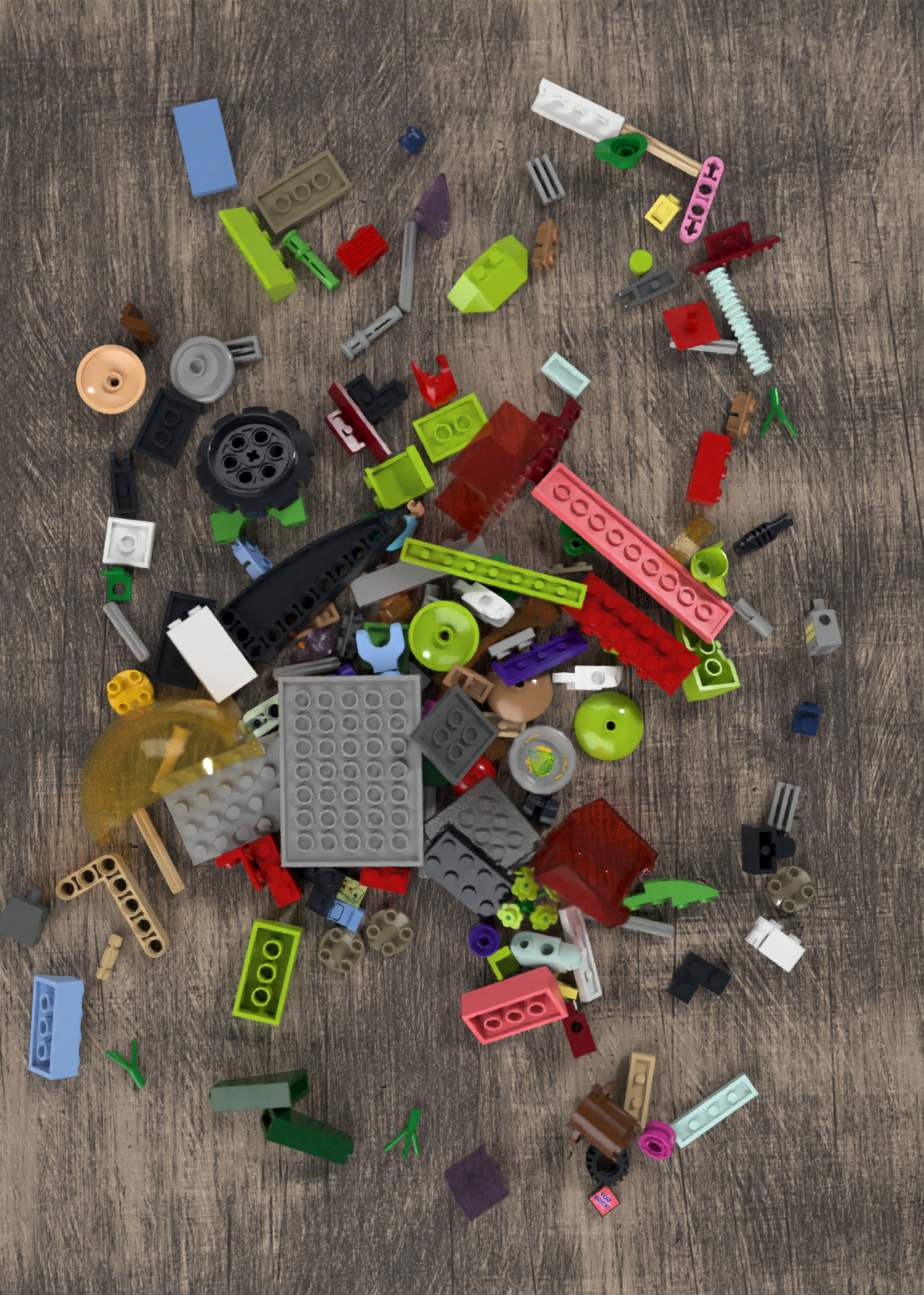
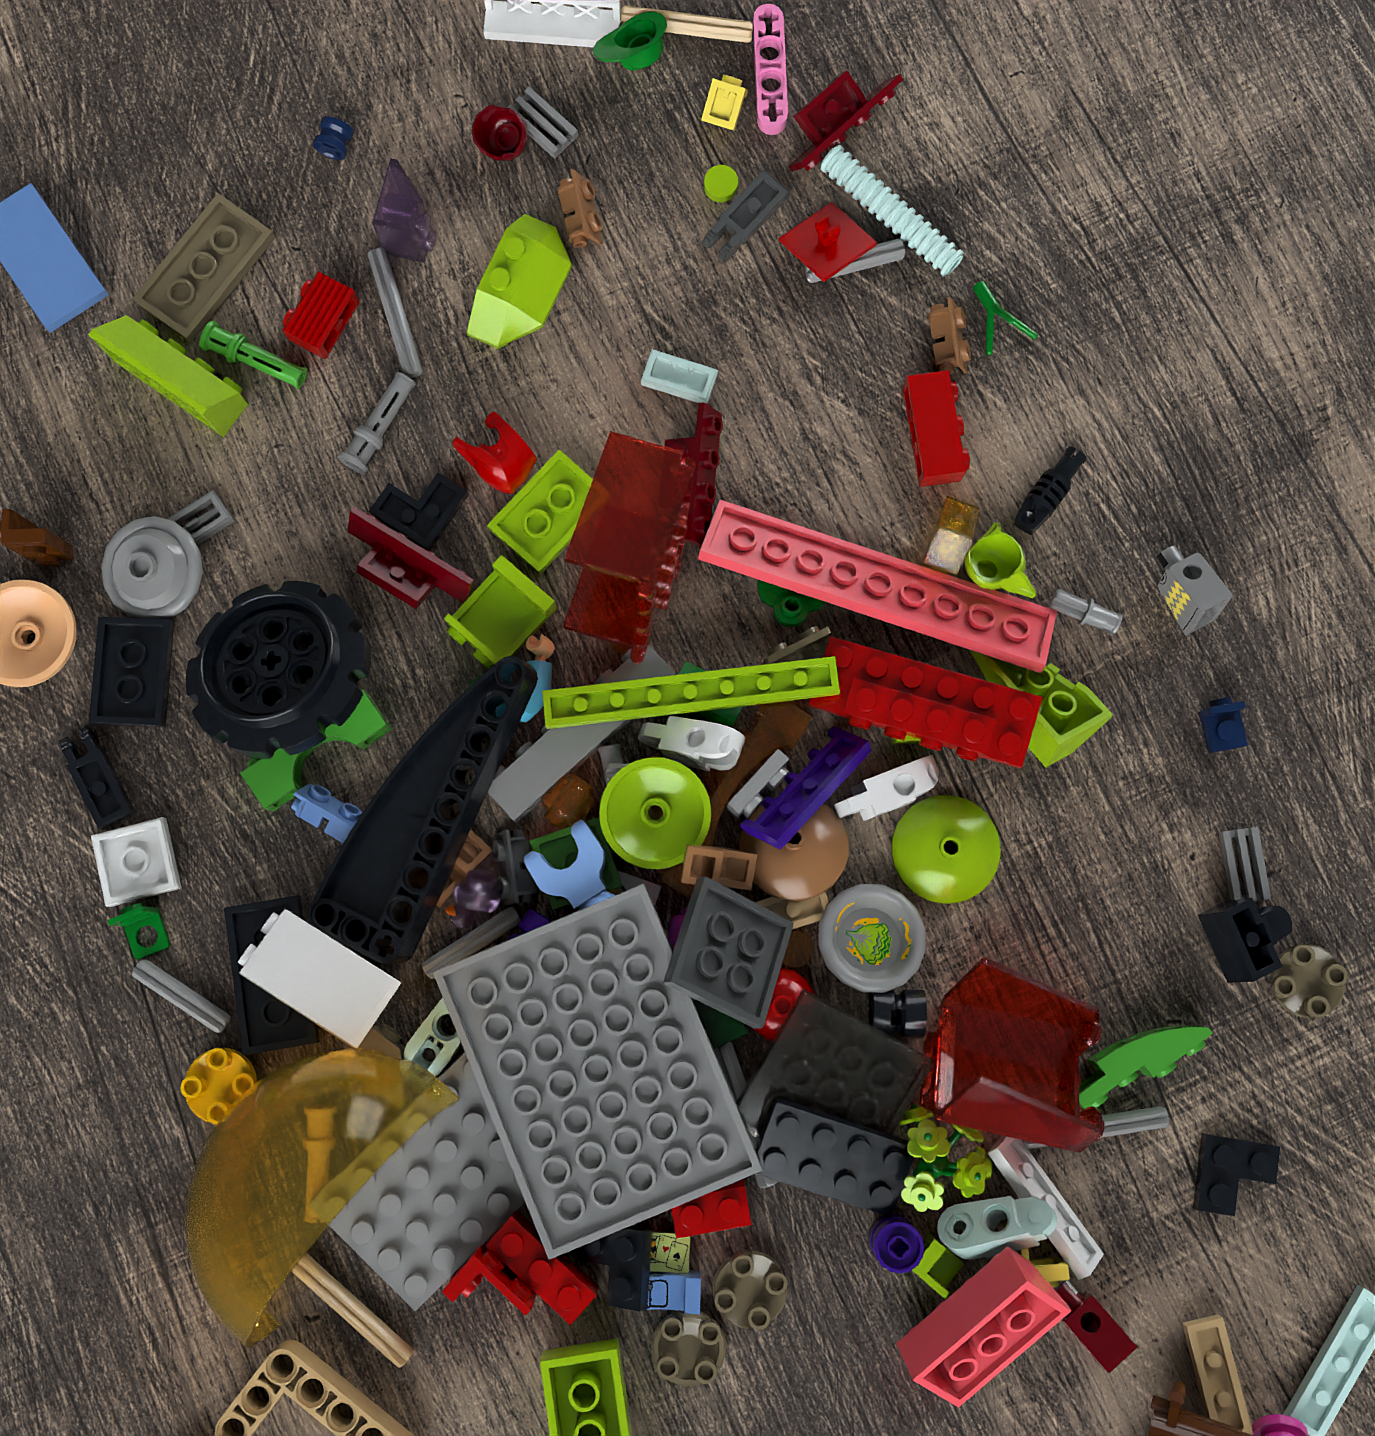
camera: 25 degrees left, 5 degrees down
(516, 177) = (500, 133): none -> dark red hair
(775, 944) = (1322, 1072): white hinge -> none

